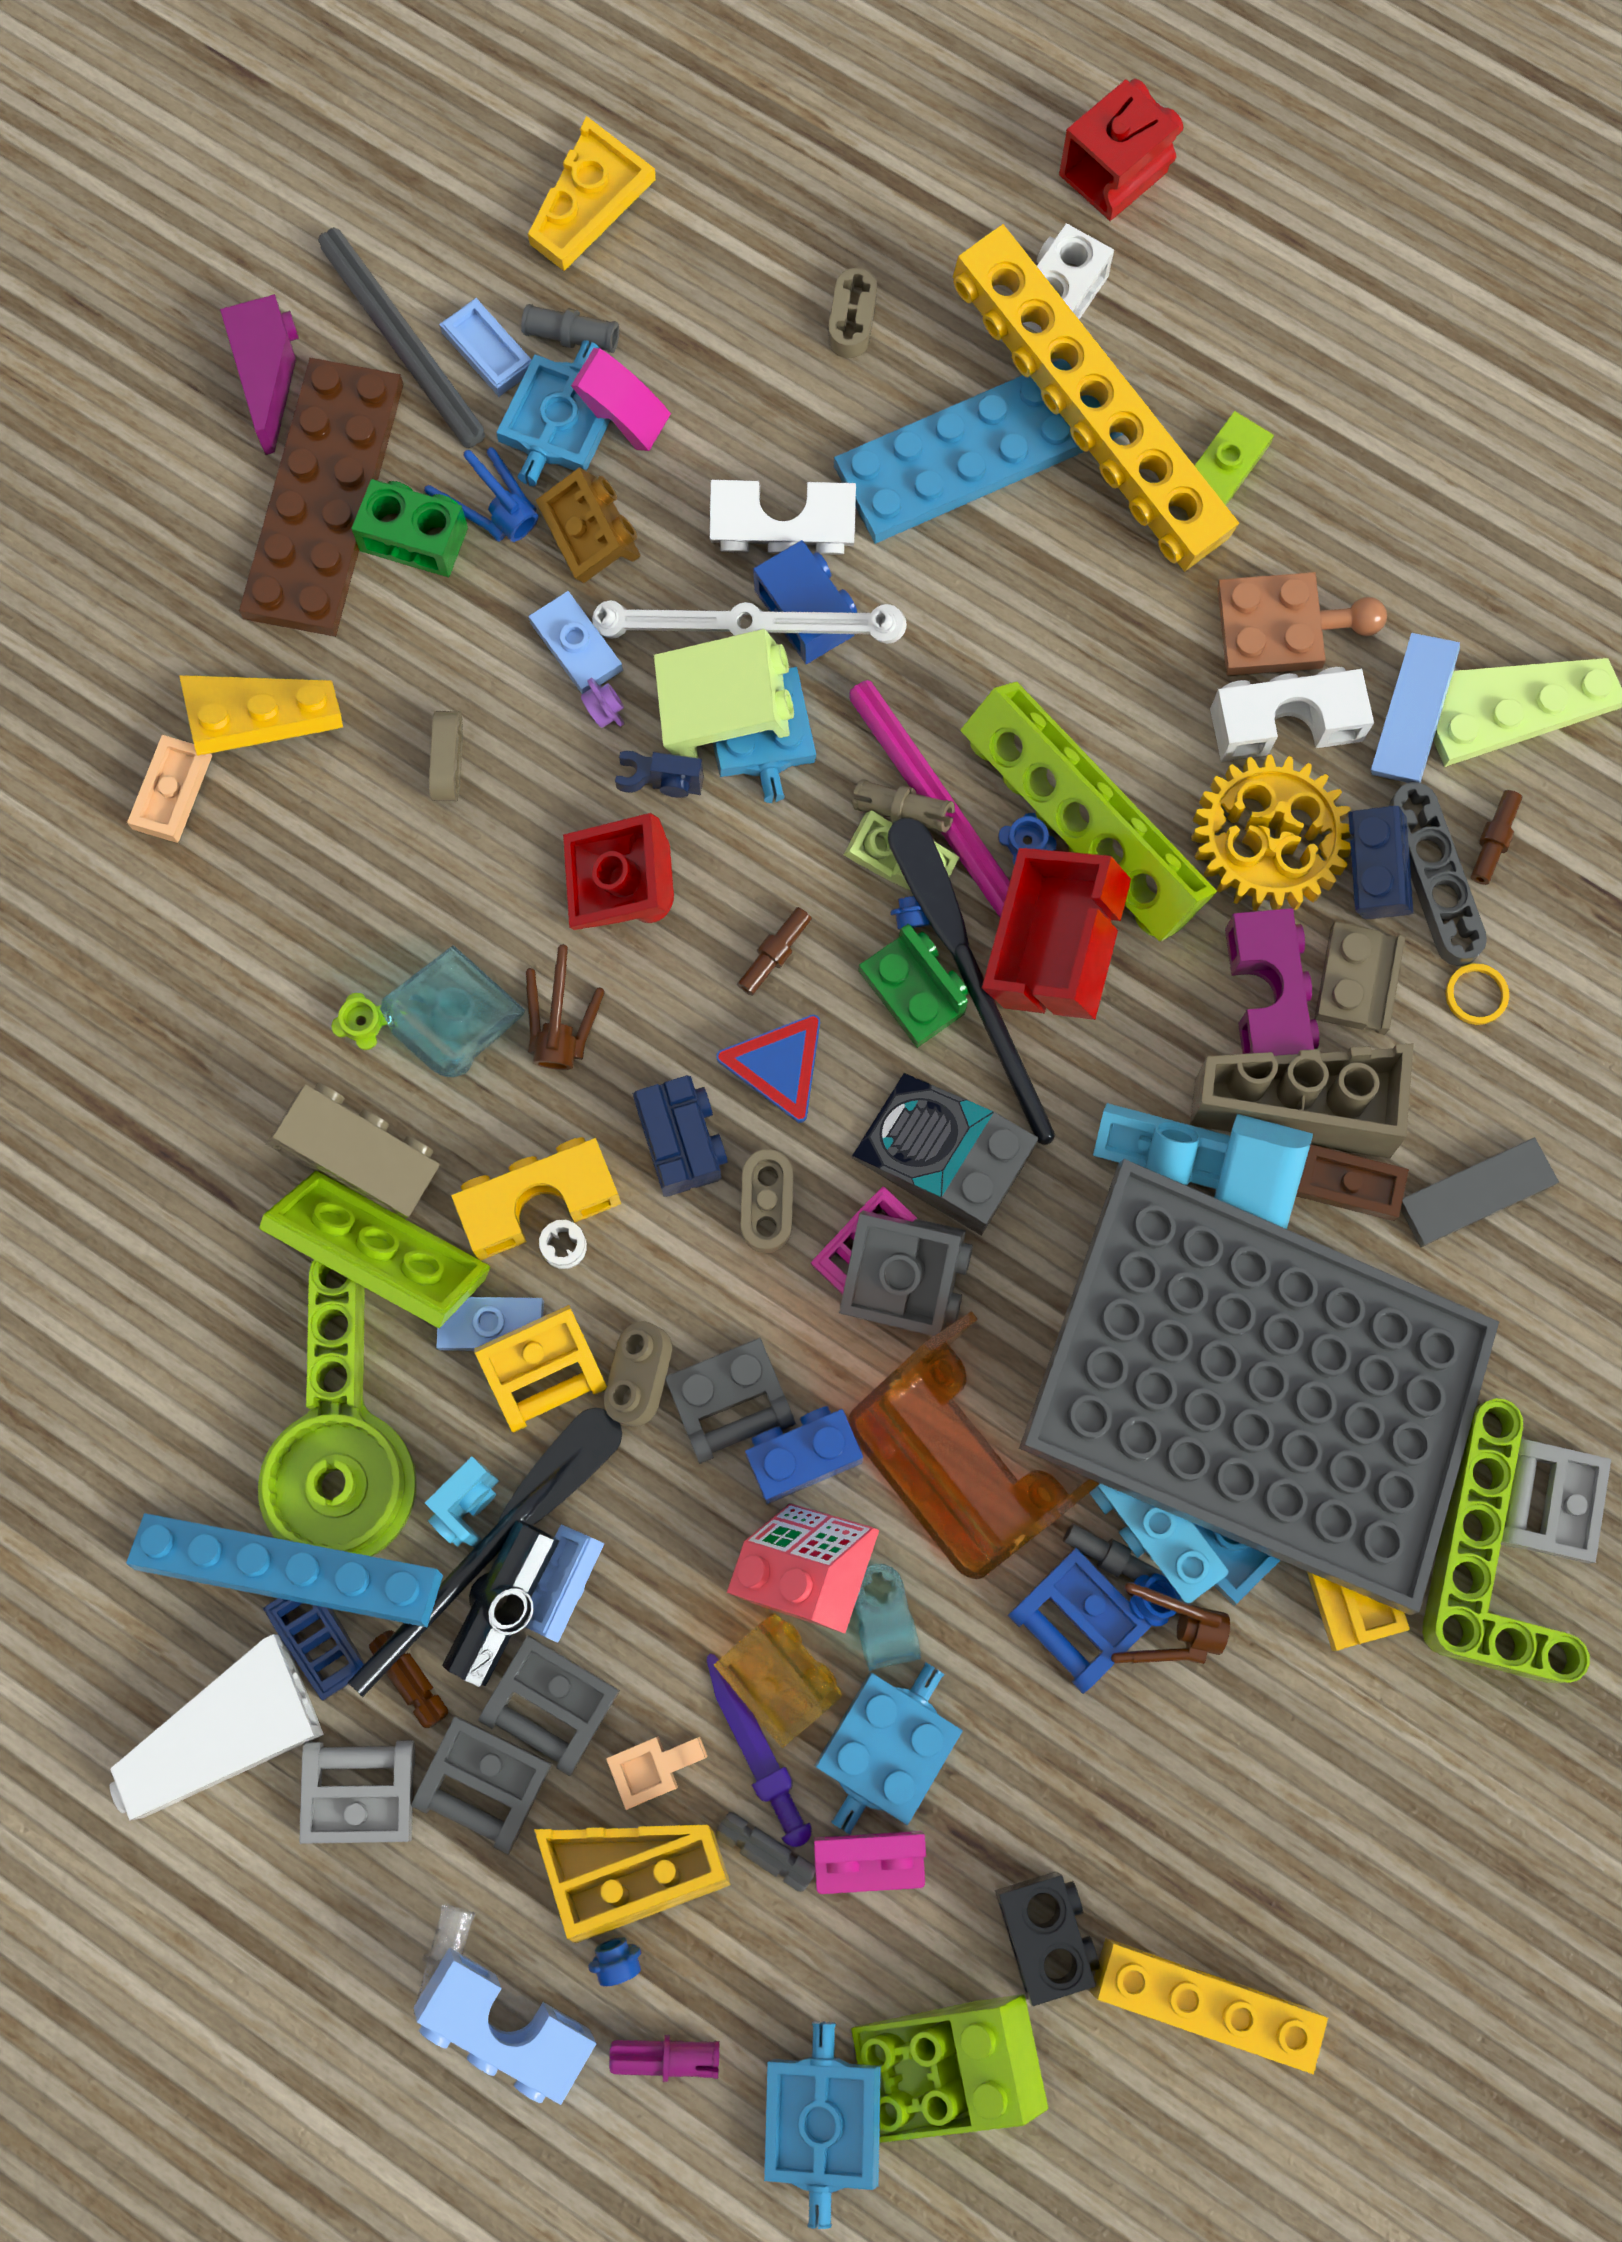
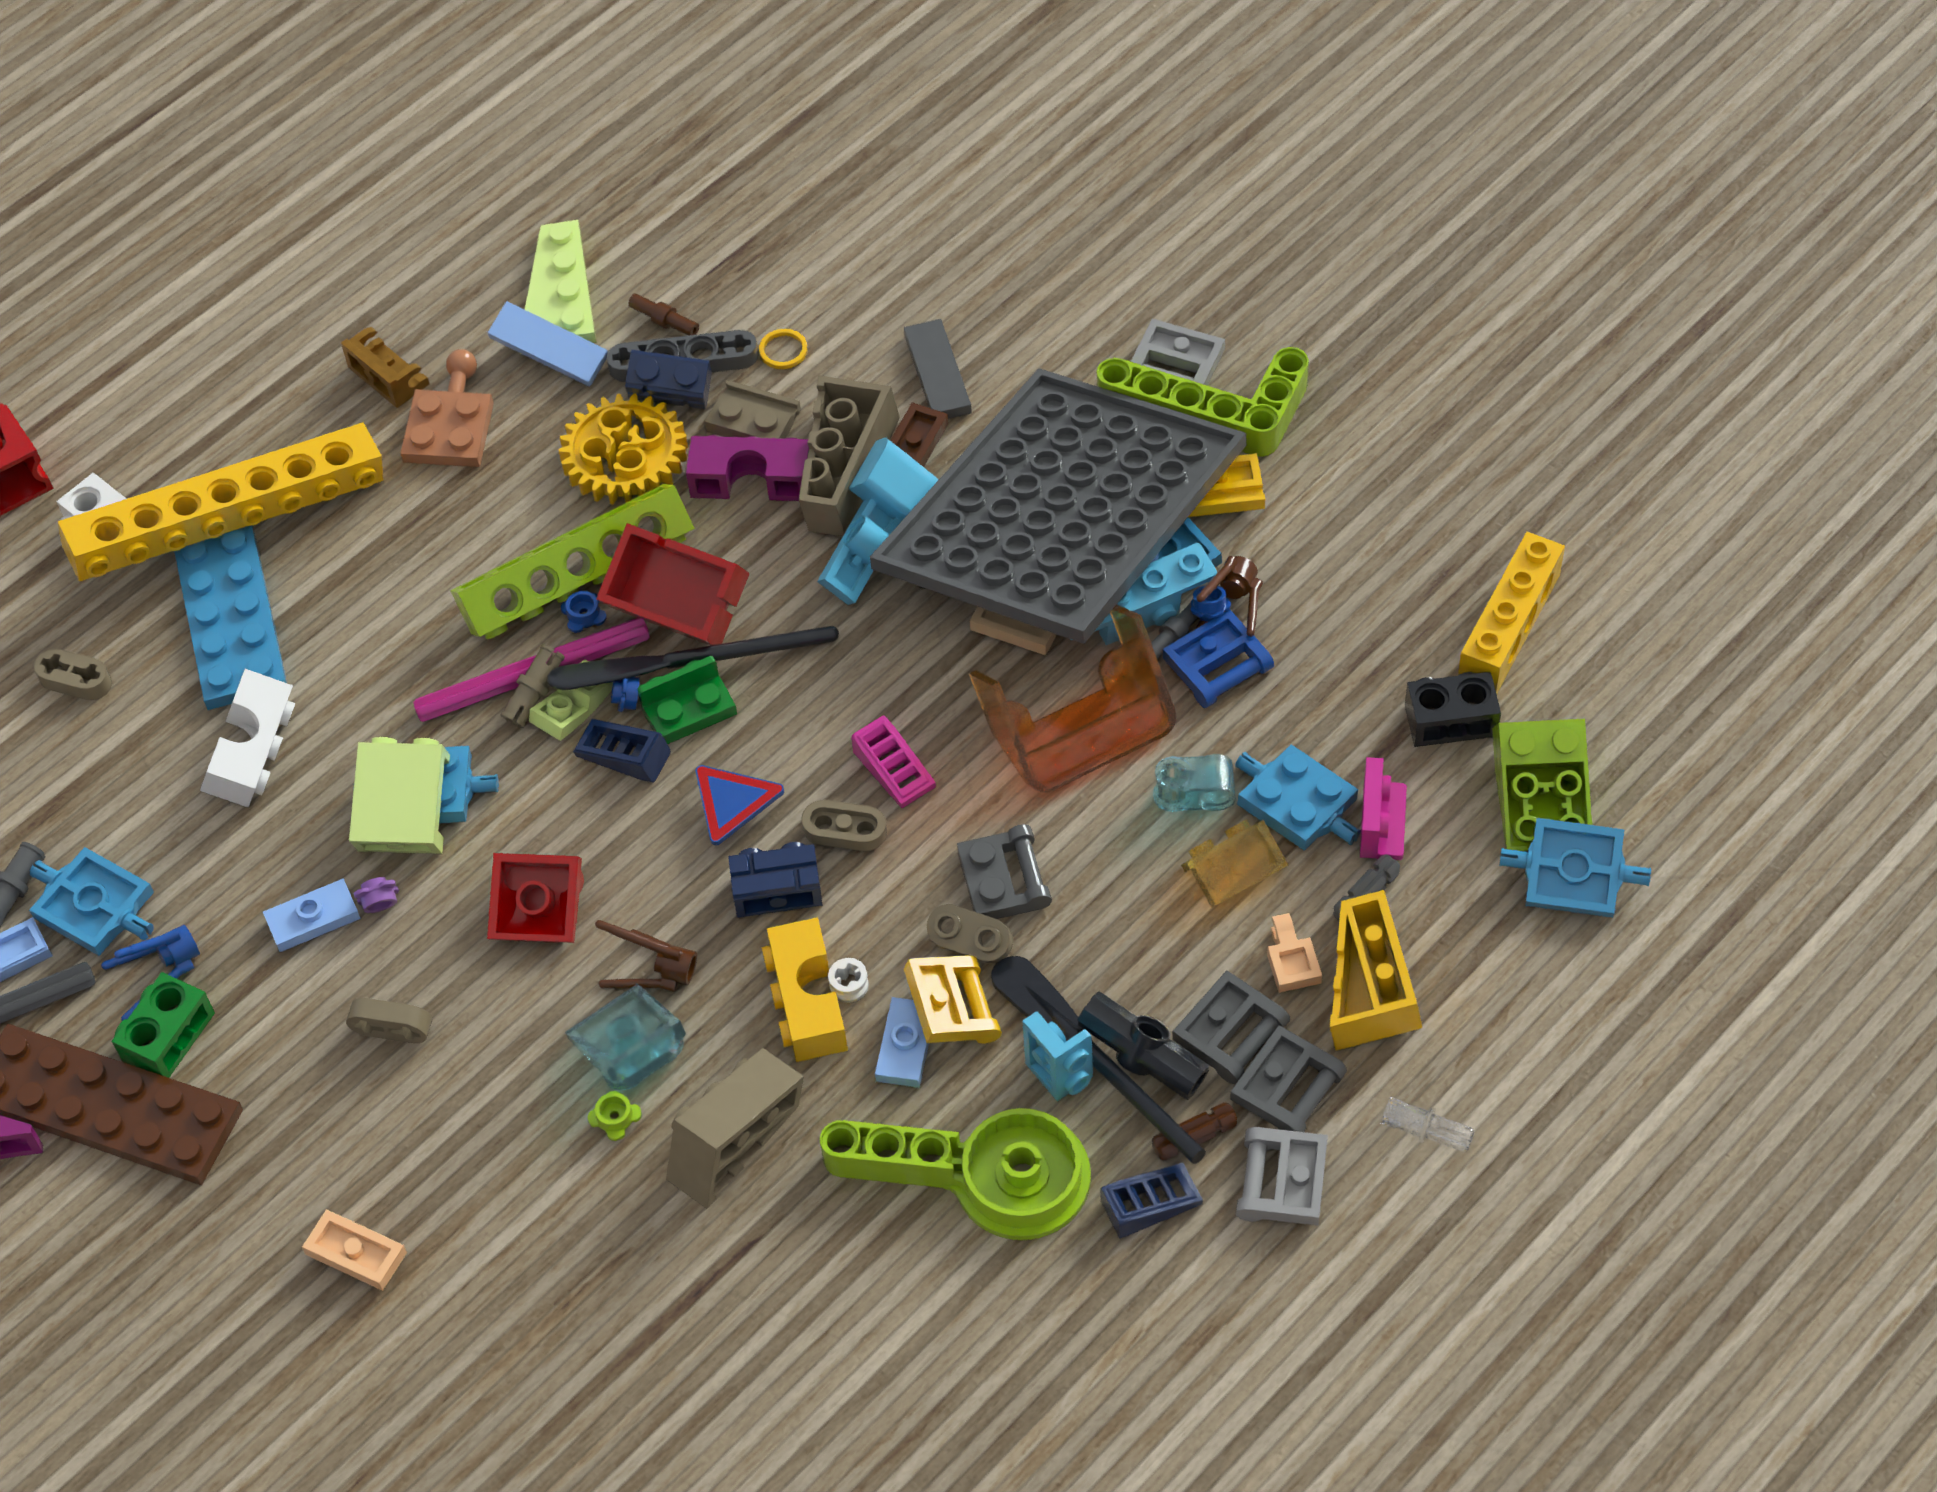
camera: 75 degrees left, 20 degrees down
(227, 1728) = (1217, 1269): white slope -> none
(254, 711) = (300, 1173): yellow wing -> none
(285, 1569) = (1088, 1203): dark azure plate -> none
(375, 1248) = (823, 1107): lime tile -> none
(541, 2056) = (1466, 1095): light blue arch -> none
(563, 1582) = (1135, 996): light blue plate -> none
(587, 524) = (205, 890): pearl gold bracket -> none
(615, 1962) = (1440, 998): blue plate -> none
(620, 396) = (98, 843): dark pink slope -> none
(665, 2058) = (1517, 973): magenta axle -> none
(669, 773) = (455, 850): dark blue plate -> none
(772, 1782) = (1313, 879): dark purple sword -> none
(774, 951) = (631, 797): reddish brown bar -> none
(802, 583) = (330, 730): blue brick -> none
(803, 1455) = (1060, 819): blue brick -> none
(805, 1566) = (1149, 821): coral slope -> none
(833, 956) = (644, 763): none -> dark blue slope
(884, 623) = (383, 652): white piece -> none
(905, 1273) = (926, 726): dark grey plate -> none
(946, 1151) = (831, 694): slope -> none
(1233, 455) = (289, 426): lime plate -> none
(1330, 703) = (527, 397): white arch -> none
(1347, 529) = (383, 368): none -> pearl gold hinge

